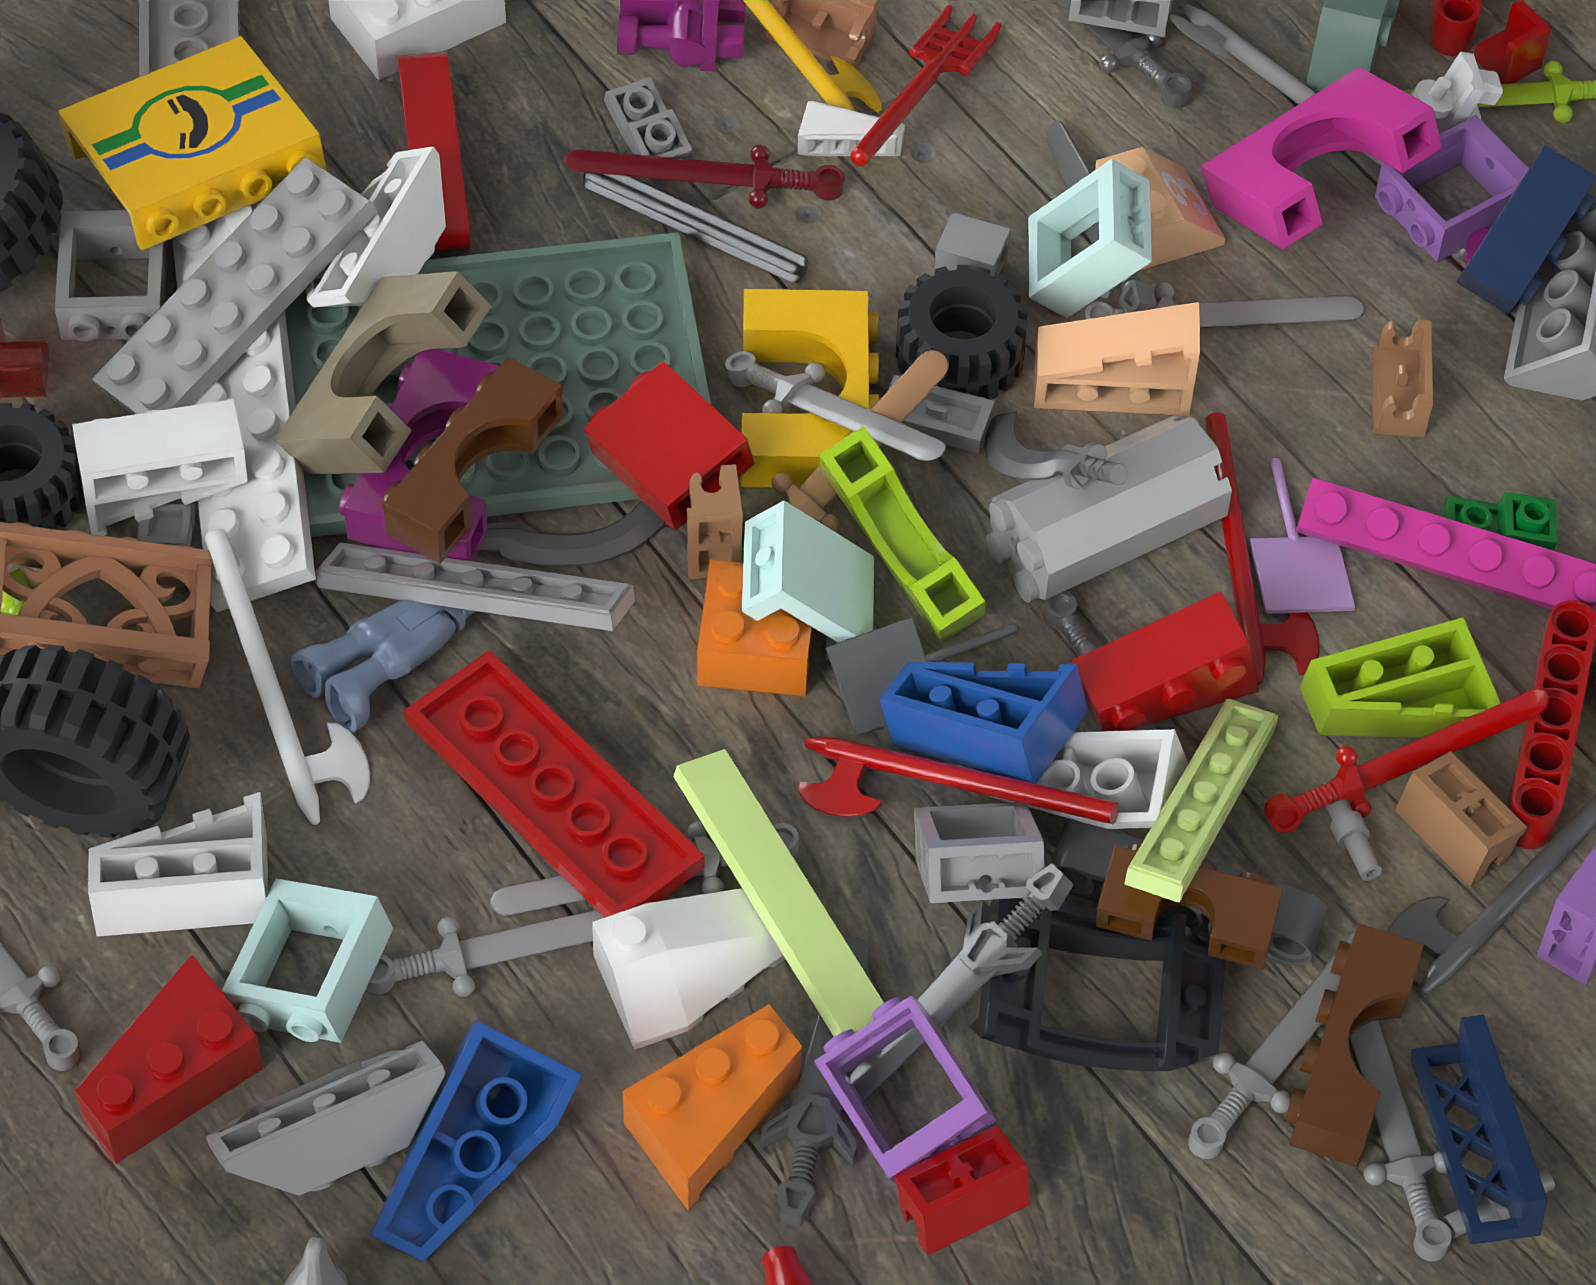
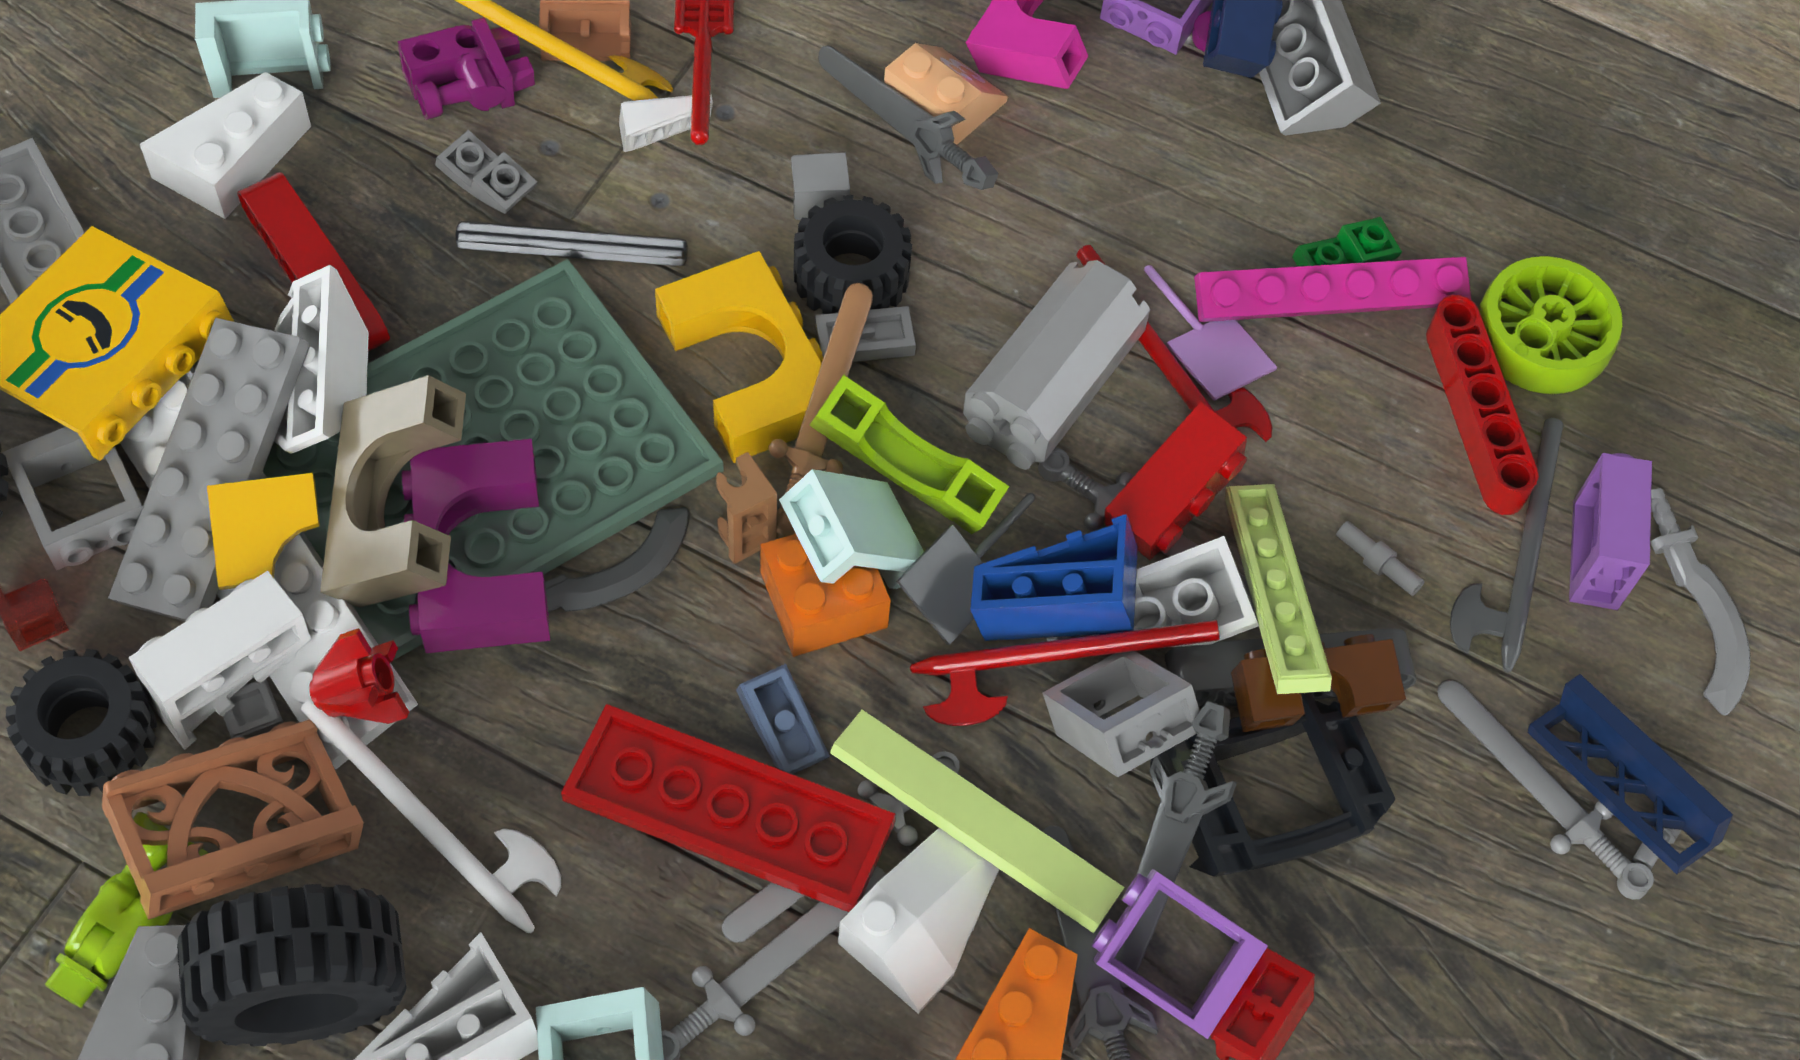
camera: 30 degrees left, 5 degrees up
(250, 353) = (256, 521): none -> yellow tile
(262, 528) = (358, 681): none -> red brick
(396, 641) = (516, 726): sand blue piece -> none
(476, 586) = (568, 653): light grey tile -> none
(508, 413) = (506, 597): reddish brown arch -> none
(651, 734) = (782, 720): none -> sand blue slope
(662, 437) = (669, 454): red brick -> none
(799, 391) = (745, 362): light grey sword -> none
(825, 182) = (605, 183): dark red sword -> none
(1077, 464) = (986, 349): dark grey sword -> none
(1113, 198) = (953, 120): light aqua window -> none
(1120, 362) = (993, 232): light nougat wedge -> none
(1253, 311) = (950, 200): light grey sword -> none
(1256, 1078) = (1430, 765): light grey sword -> none
(1338, 1101) = (1503, 801): reddish brown arch -> none
(1352, 781) = (1329, 564): red sword -> none
(1400, 685) = (1365, 419): lime wedge -> none
(1402, 381) = (1212, 162): medium nougat hinge -> none
(1459, 817) = (1460, 512): medium nougat hinge -> none

